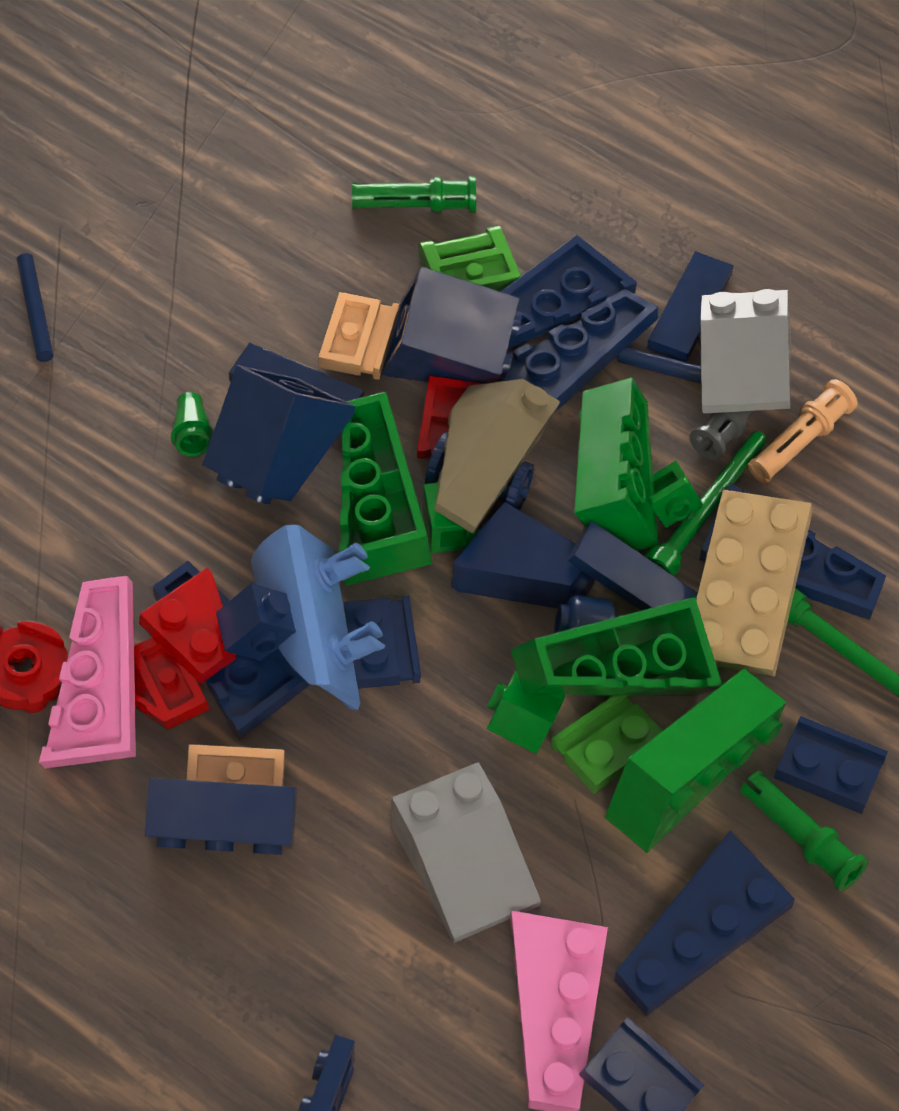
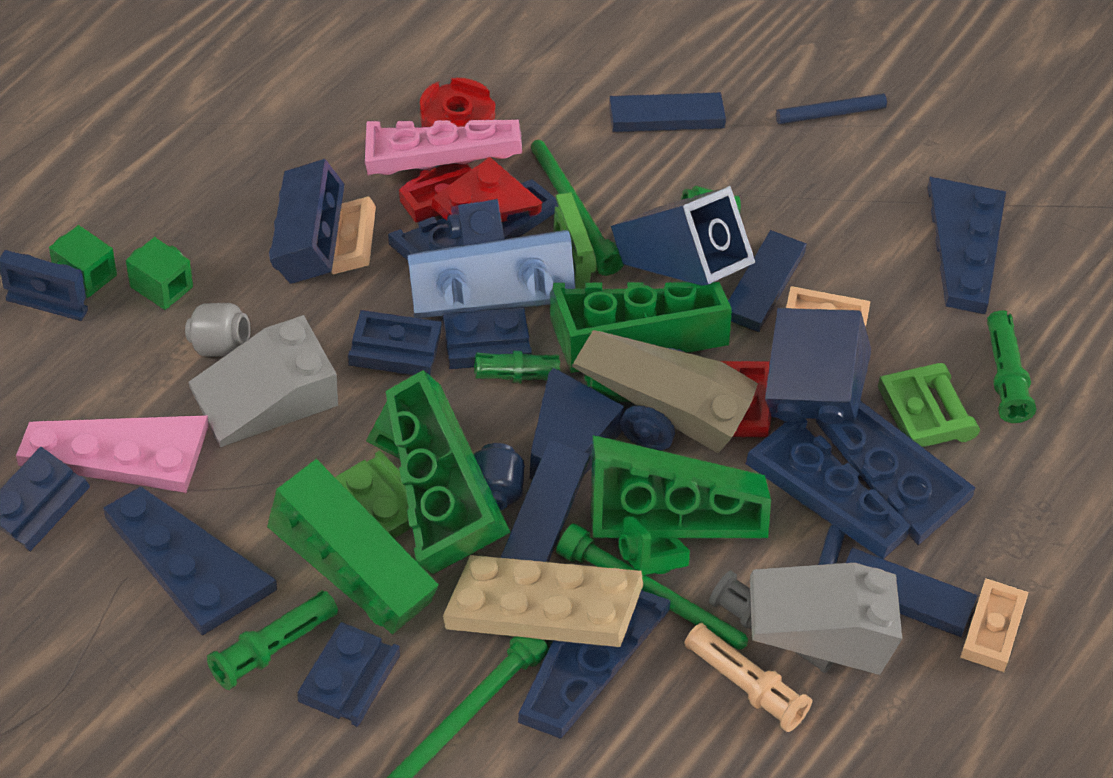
camera: 90 degrees right, 5 degrees down
(32, 460) = (667, 112): none -> dark blue tile
(223, 206) = (967, 240): none -> dark blue wing
(236, 543) = (568, 218): none -> bright green plate
(260, 524) = (606, 252): none -> green piece
(277, 1065) = (88, 254): none -> green brick
(295, 974) = (159, 273): none -> green brick
(388, 903) = (217, 329): none -> light grey head
(399, 726) = (394, 343): none -> dark blue plate
(429, 610) = (514, 366): none -> green pin
(727, 242) = (994, 625): none -> light nougat plate

